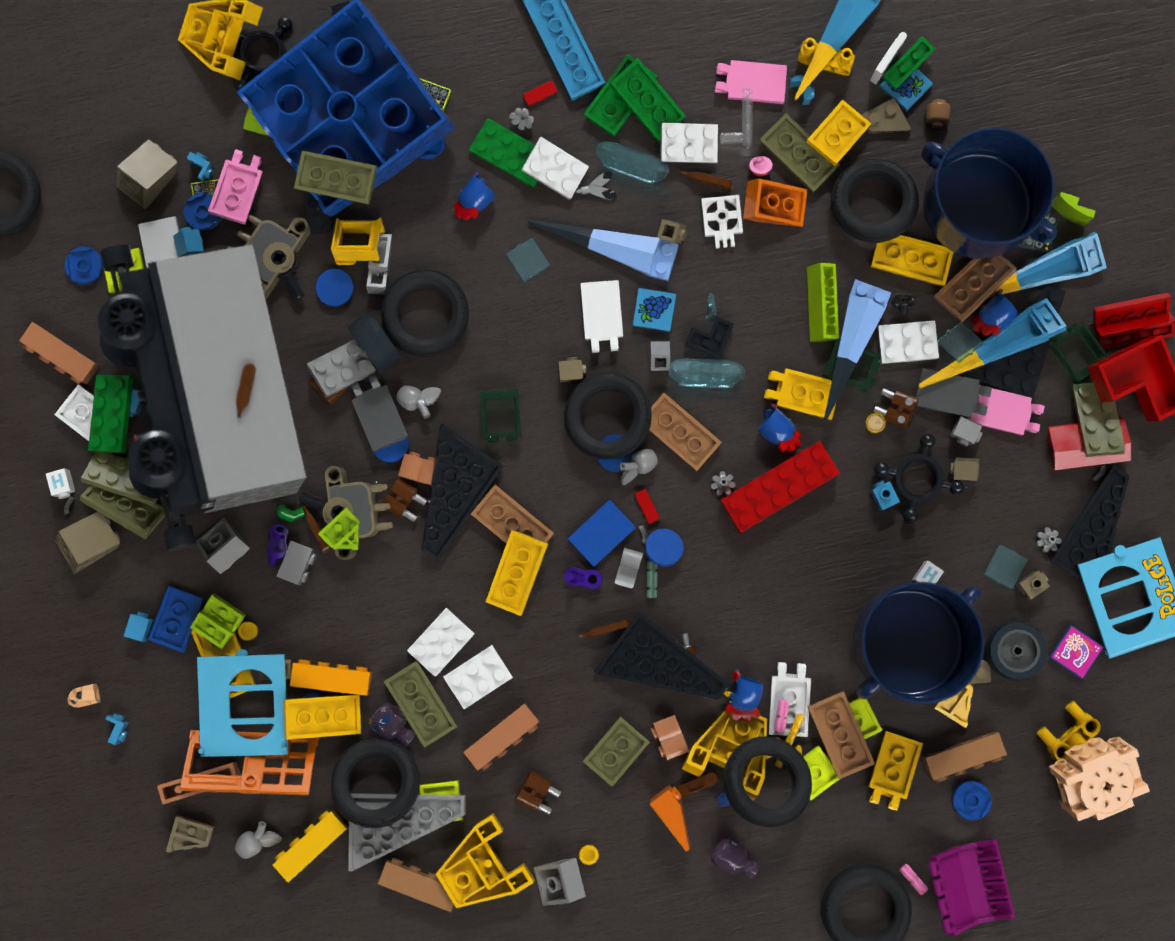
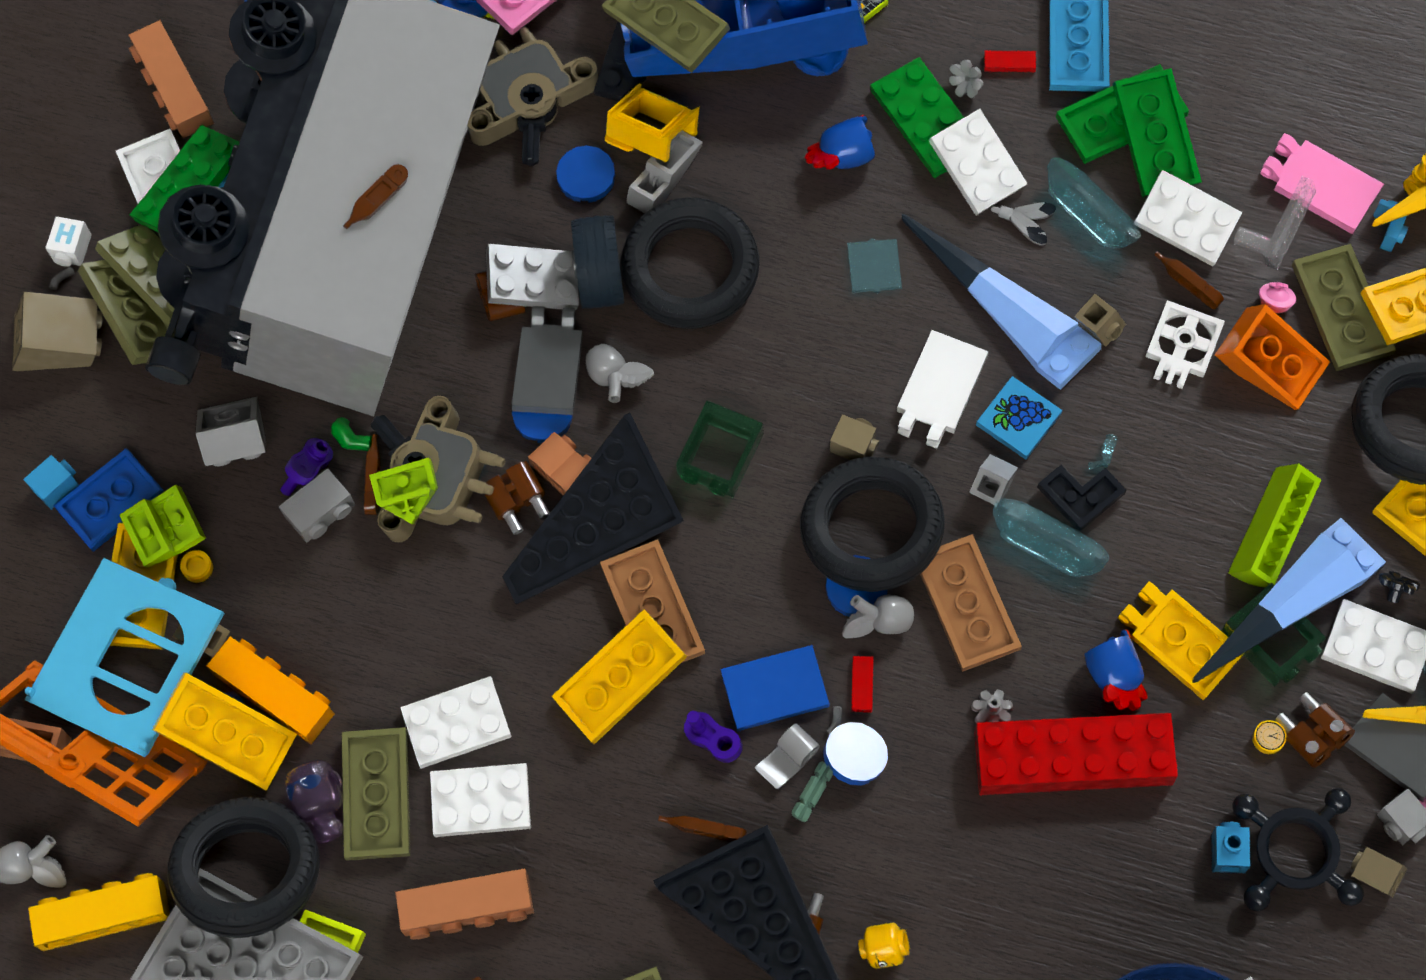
camera: 30 degrees right, 15 degrees down
(732, 642) = (884, 945): none -> yellow head

